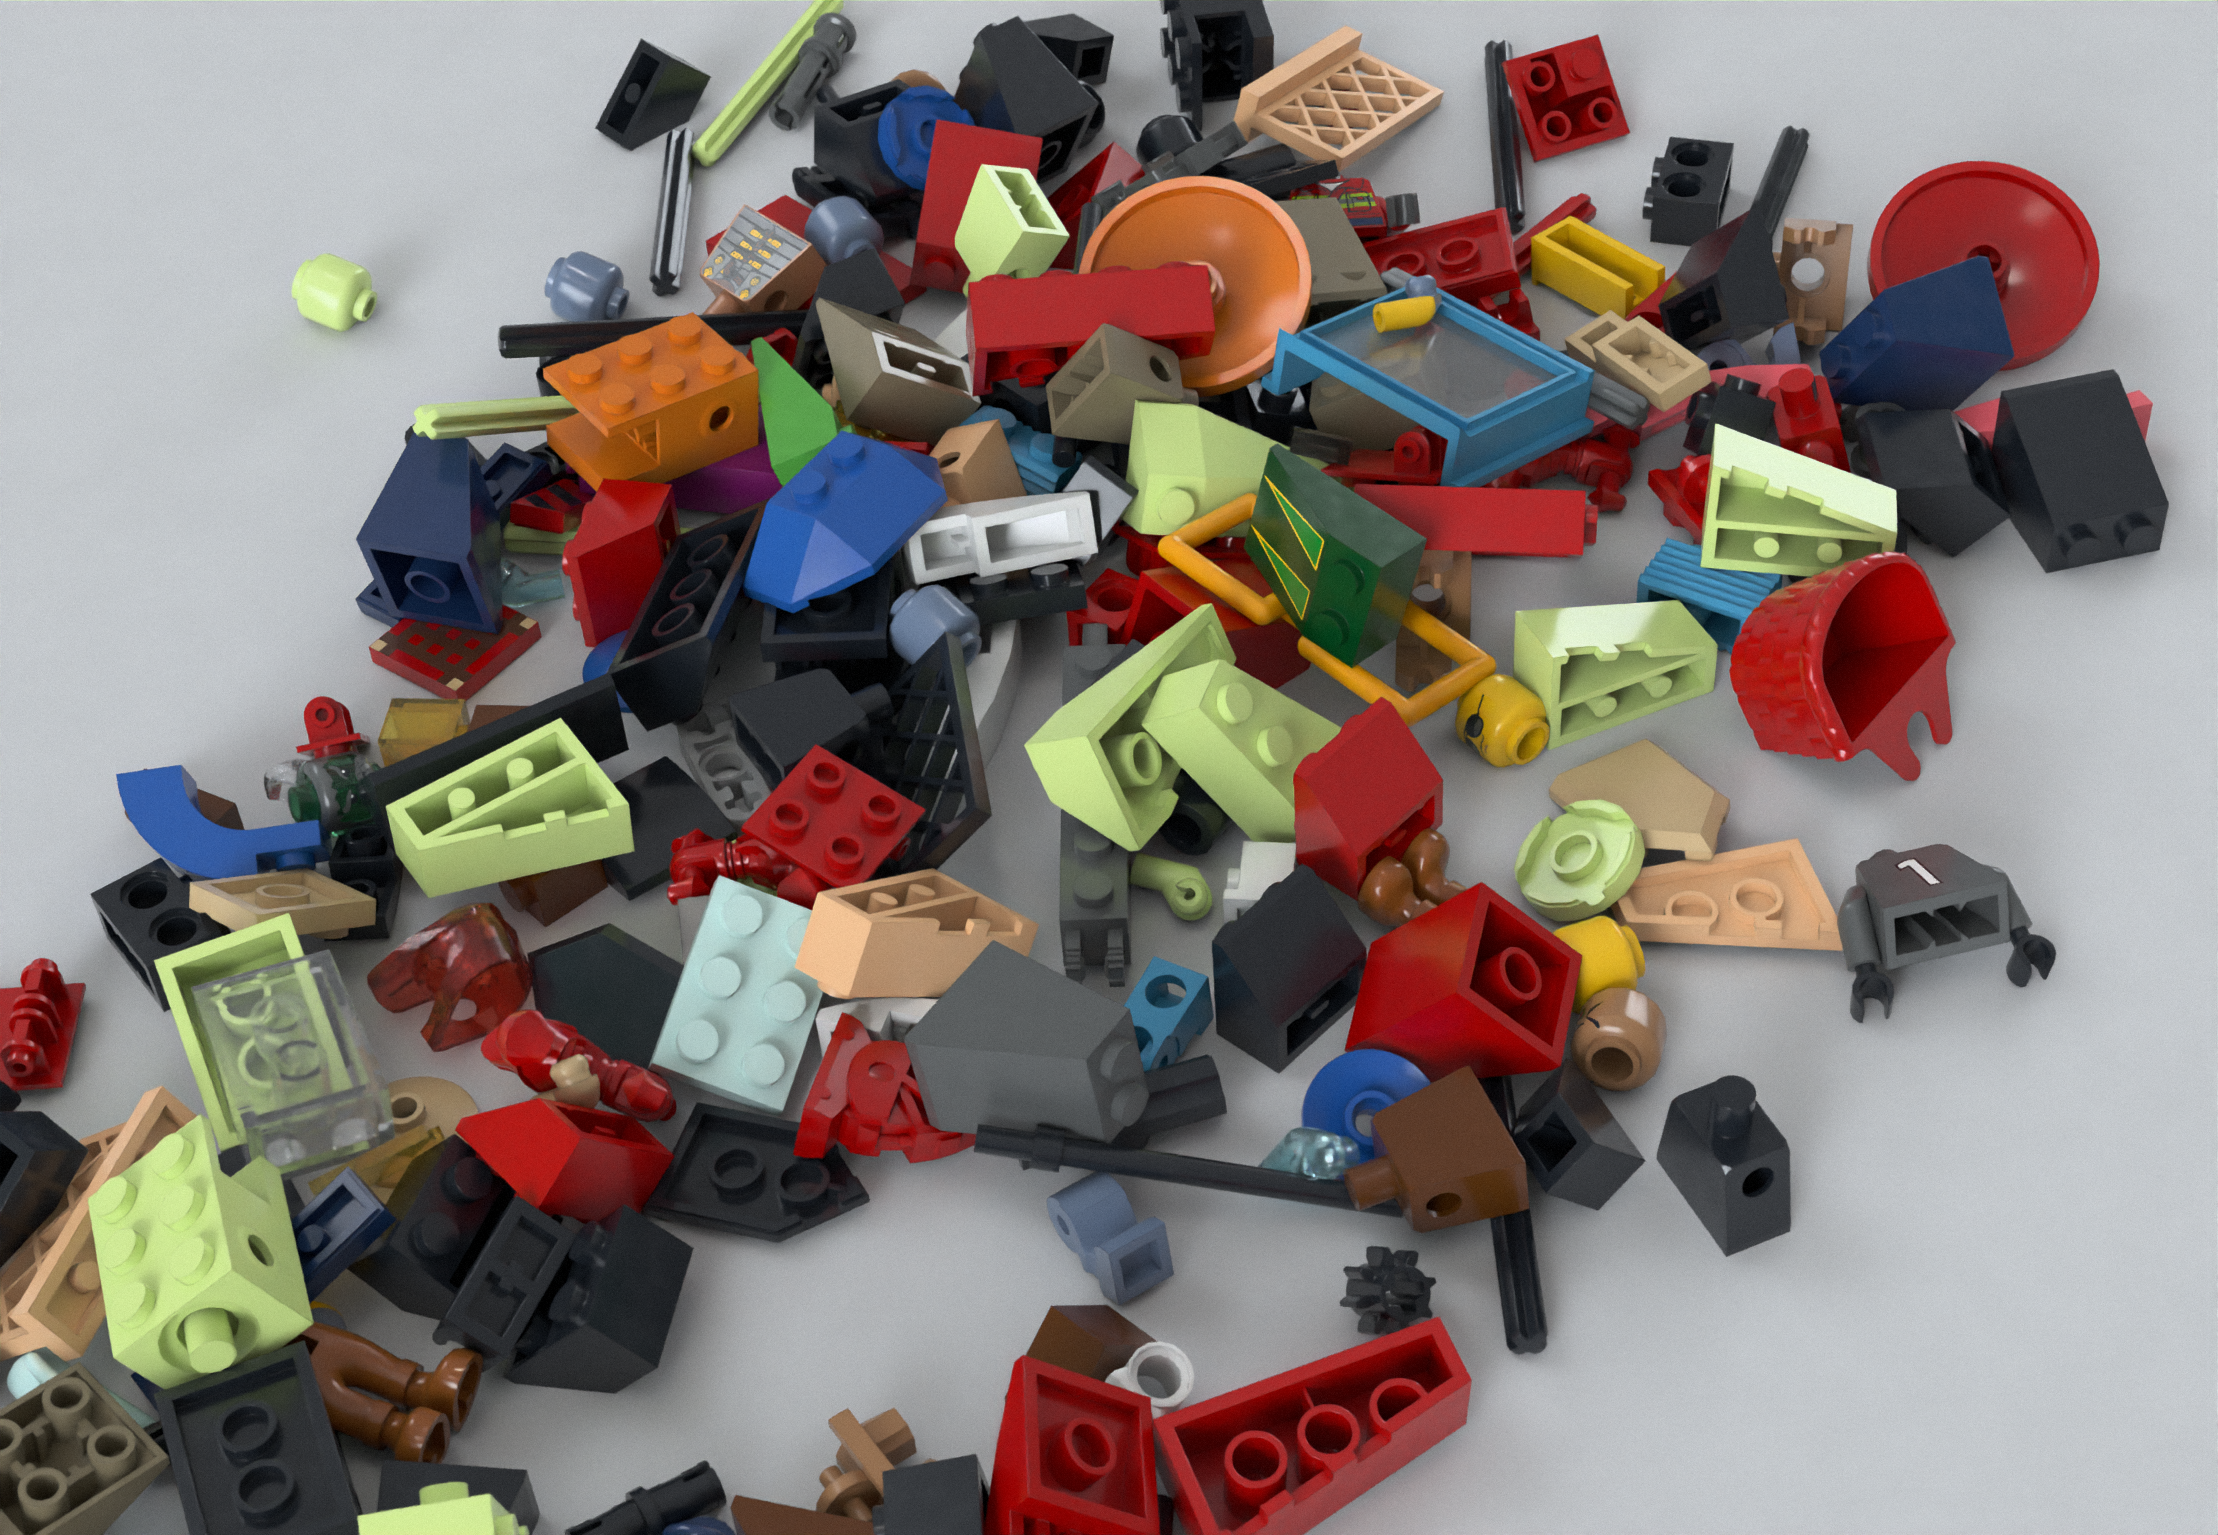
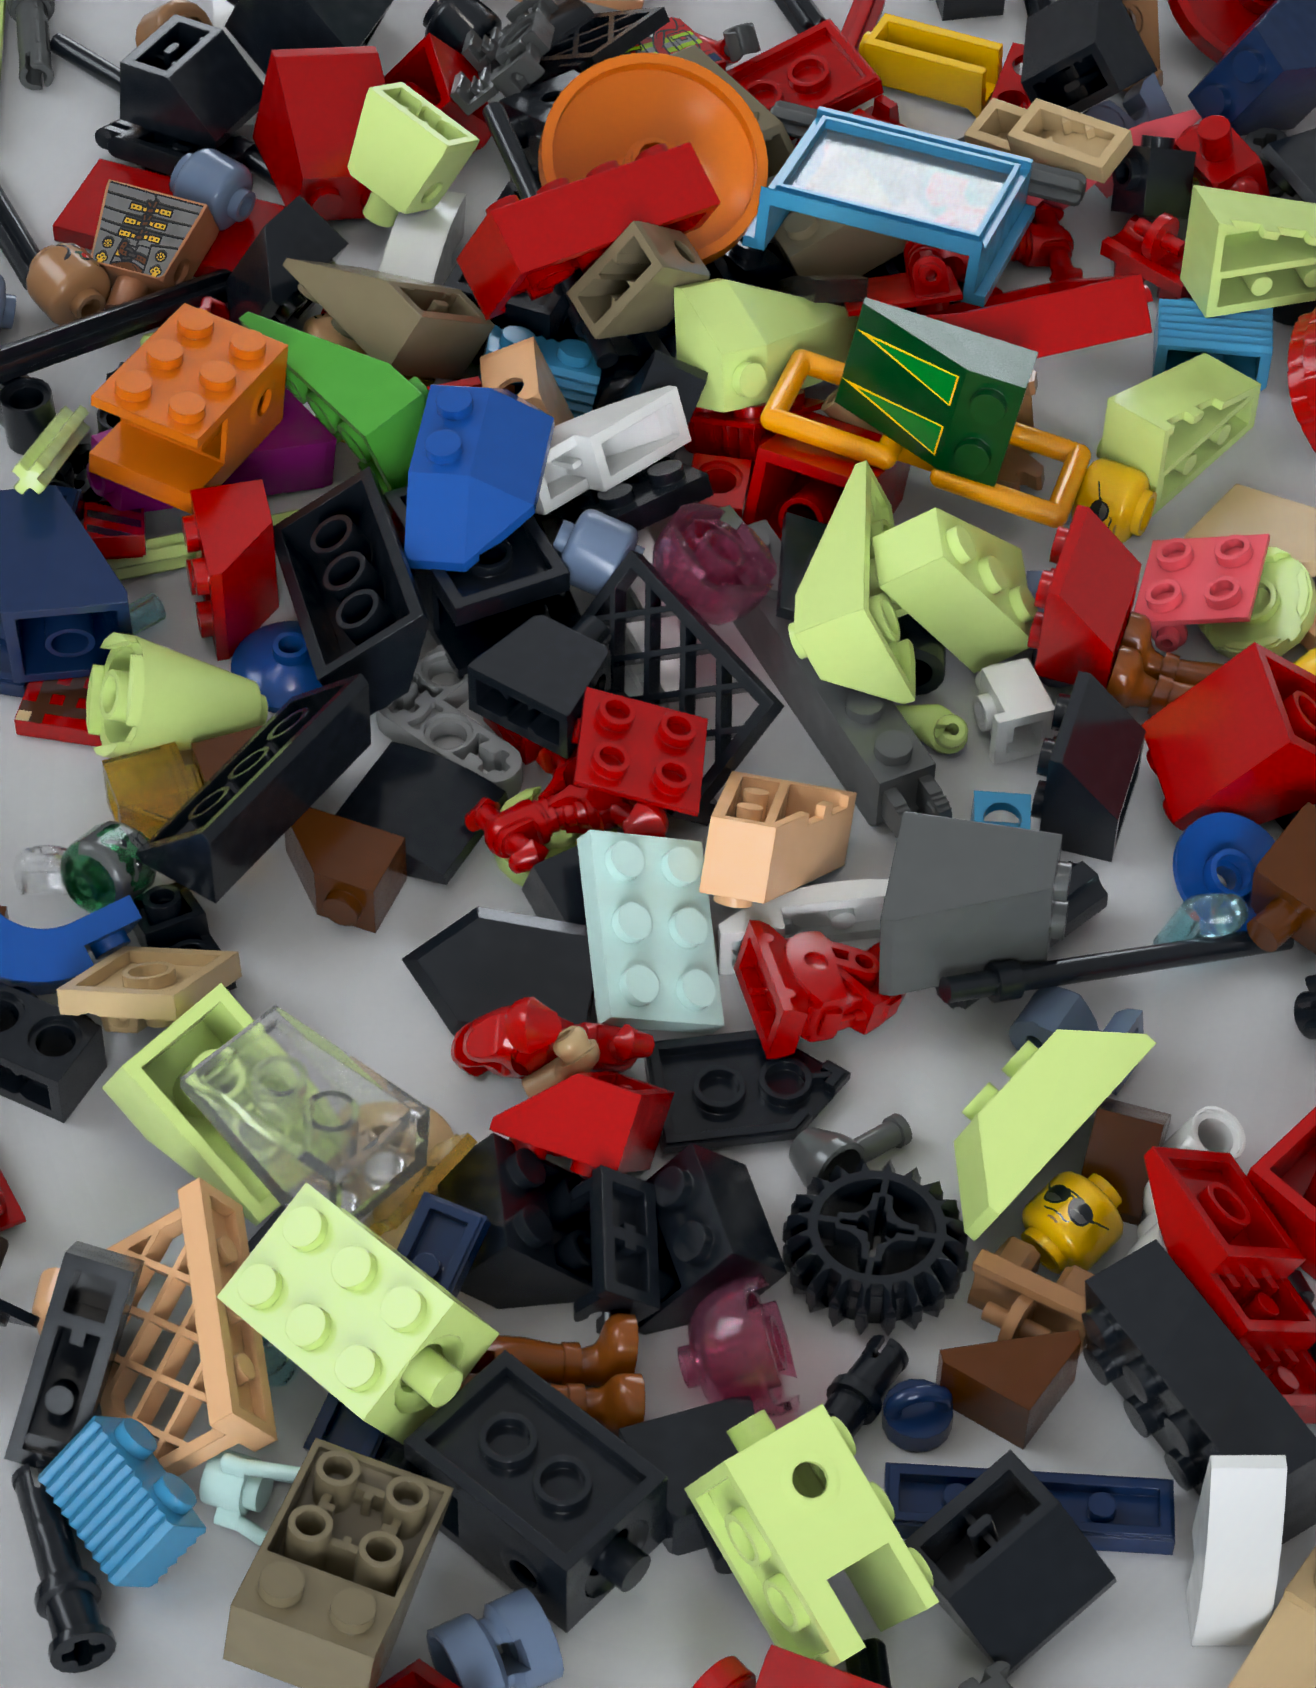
camera: 30 degrees left, 5 degrees up
(329, 729) = (60, 809): red hinge -> none
(458, 957) = (365, 980): clear red helmet -> none
(484, 658) = (164, 697): none -> yellowish green cone
(511, 815) = (340, 833): yellowish green wedge -> none
(566, 1428) = (739, 1348): none -> clear pink cylinder
(674, 285) = (67, 281): none -> medium nougat head
(768, 1396) = (913, 1264): none -> black gear
(789, 1280) = (819, 1150): none -> dark grey bar
(909, 128) = (231, 66): blue tile -> none
(963, 1412) = (1073, 1221): none -> yellow head
(978, 1288) = (1035, 1114): none -> yellowish green wedge
(1023, 665) = (712, 564): none -> clear pink cylinder
(1409, 312) = (848, 140): yellow arm -> none
(1525, 823) = (1200, 584): none -> coral hinge

